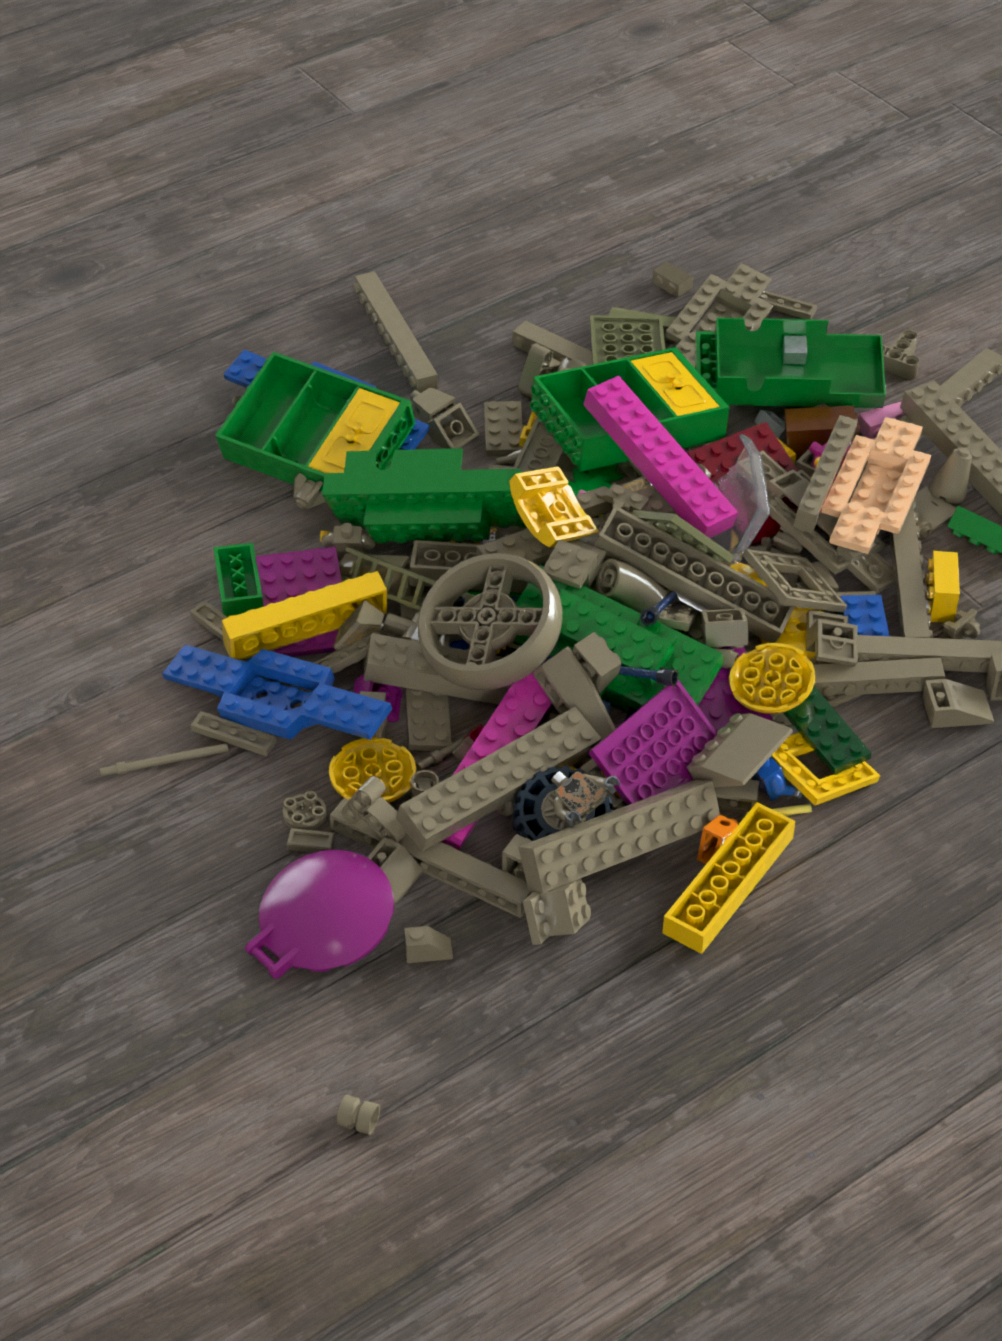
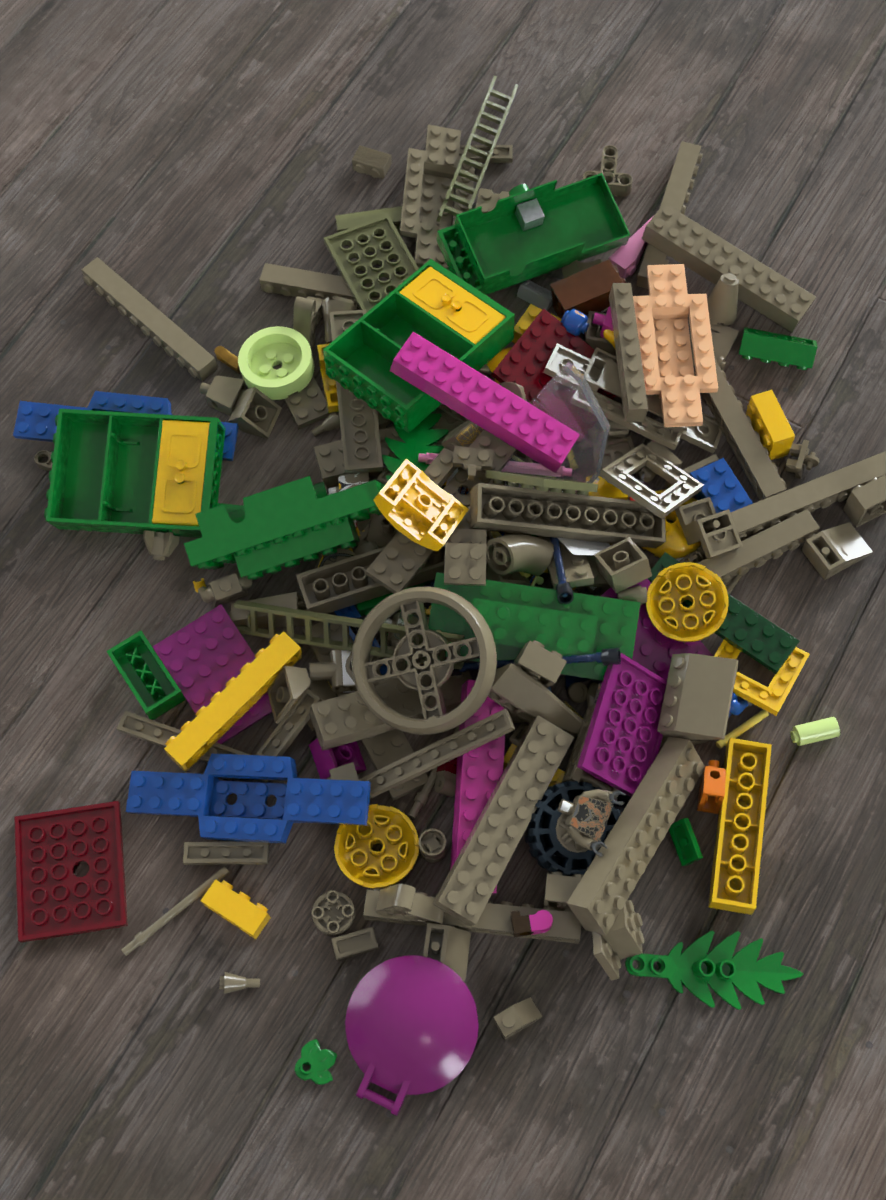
camera: 20 degrees left, 20 degrees up
(81, 674) = (48, 893): none -> dark red plate
(182, 826) = (232, 982): none -> dark tan cone
(218, 775) = (236, 908): none -> yellow brick
(222, 912) = (318, 1061): none -> green plate
(451, 383) = (227, 358): none -> pearl gold bar
(465, 710) = (440, 752): none -> dark tan plate
(480, 870) = (531, 924): none -> leg
(492, 393) = (268, 349): none -> yellowish green brick
(642, 982) = (717, 969): none -> green plant
(668, 873) = (685, 842): none -> green plate
(779, 284) = (468, 148): none -> olive ladder
(792, 444) = (575, 322): none -> blue head
(849, 835) = (815, 731): none -> yellowish green brick

